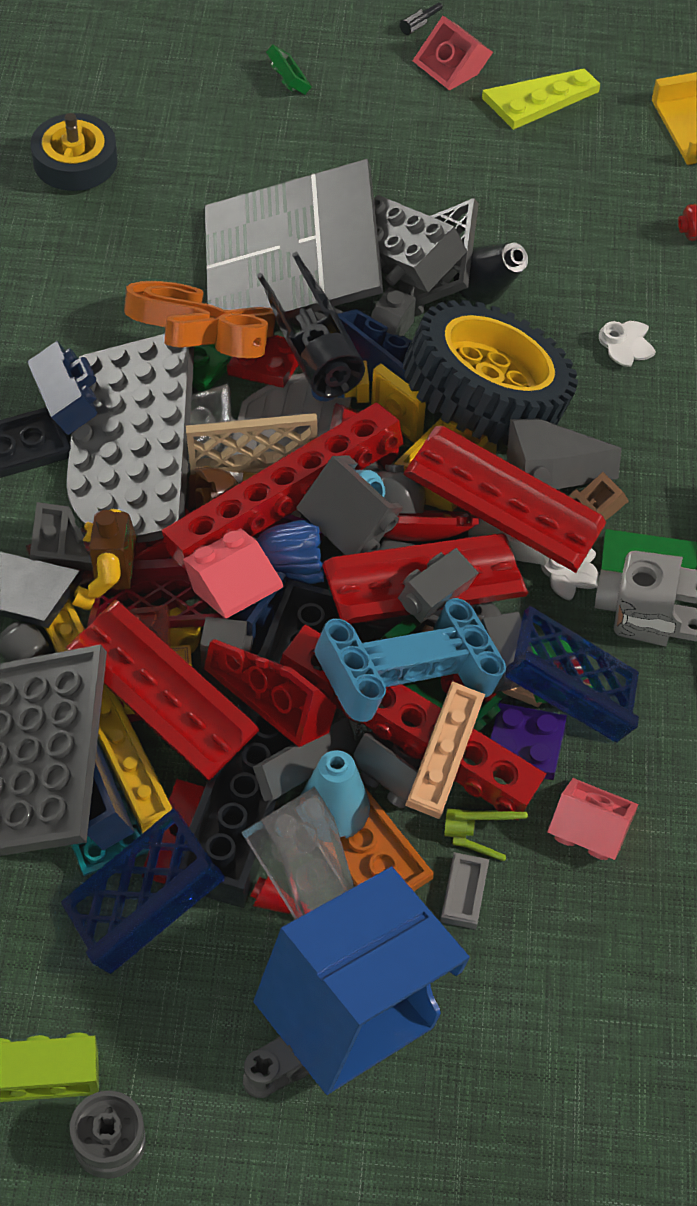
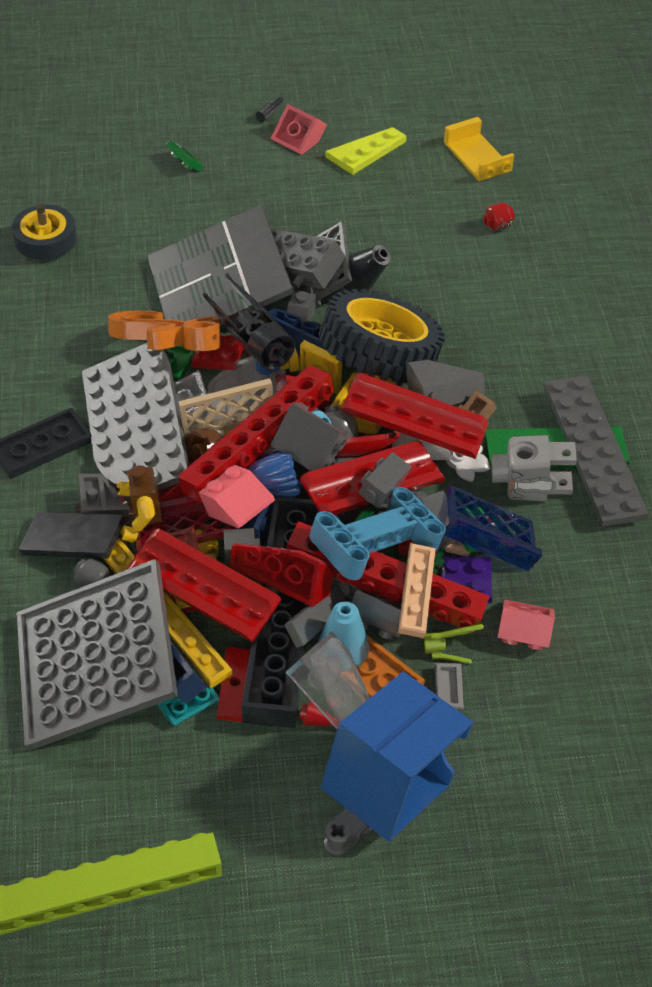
camera: 10 degrees left, 5 degrees down
(62, 387) = (73, 388): piece -> none
(108, 1134) = (238, 899): dark grey wheel -> none
(153, 910) = (234, 738): clear blue fence -> none
(626, 342) = (467, 303): white plate -> none

